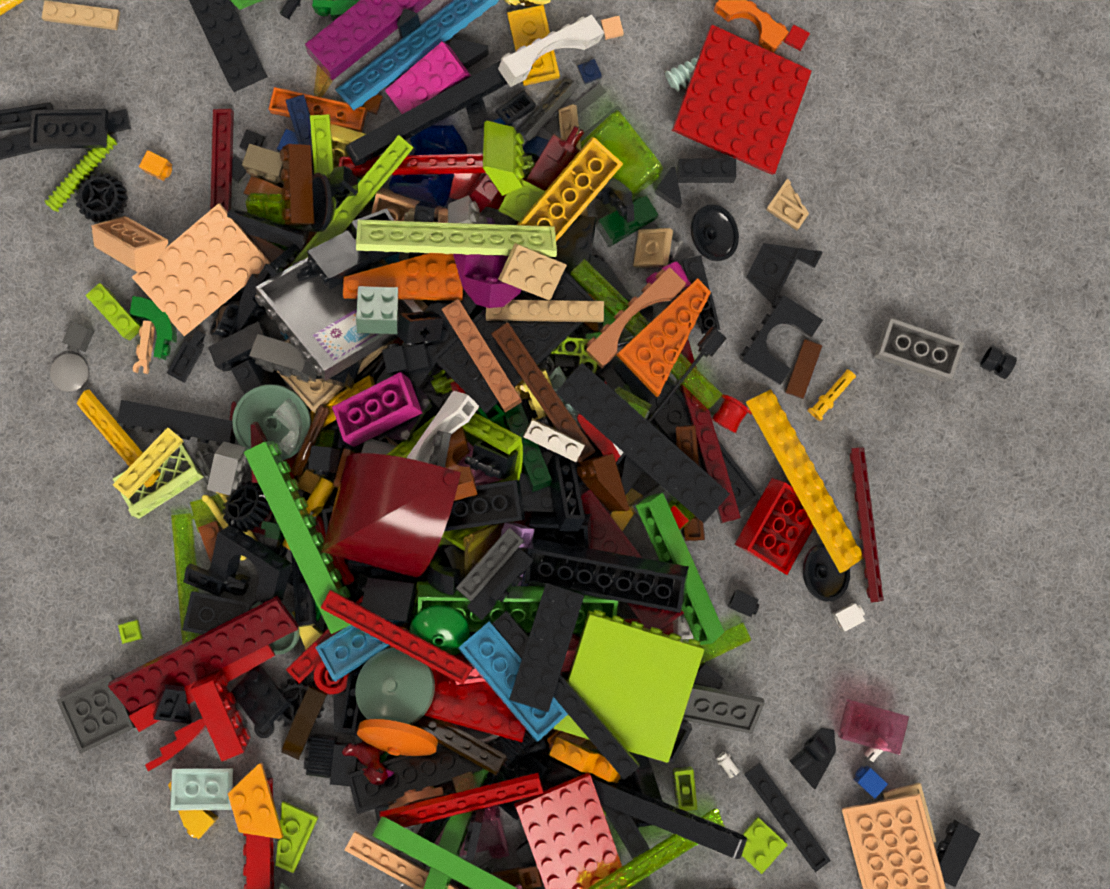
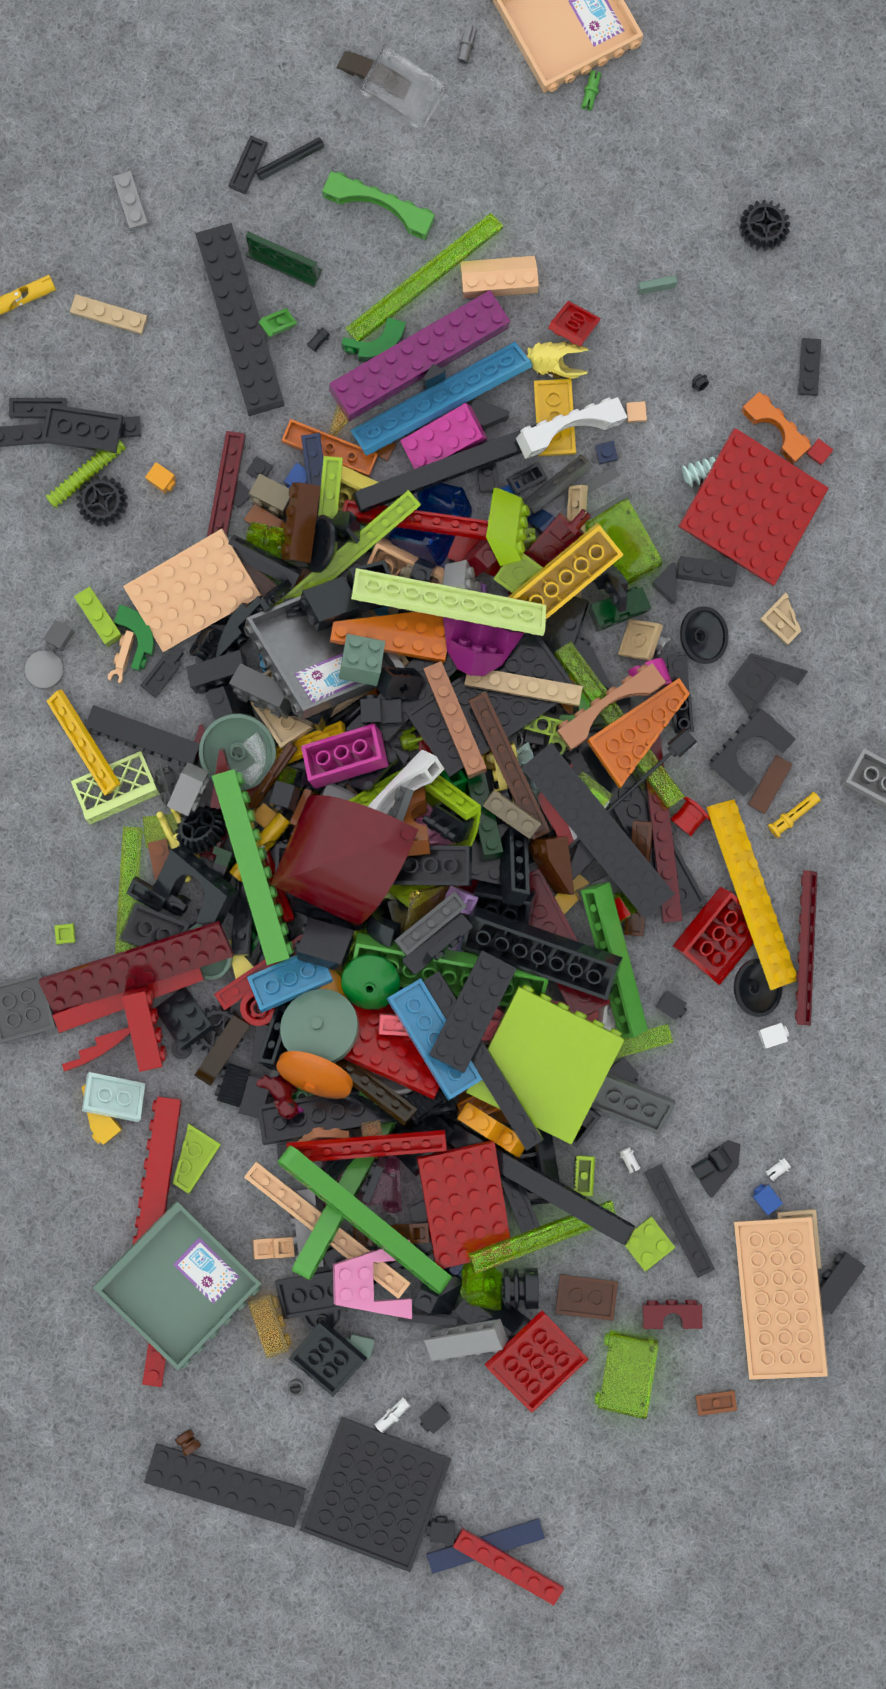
camera: 10 degrees right, 0 degrees up
(129, 242) = (125, 551): light nougat slope -> none
(148, 463) = (111, 771): light yellow plate -> none
(172, 705) = (98, 1011): black wing -> none
(254, 805) = (162, 1120): light orange wing -> none
(396, 637) = (329, 978): red tile -> none
(532, 271) = (517, 646): tan plate -> none
(873, 726) = (778, 1145): clear pink slope -> none

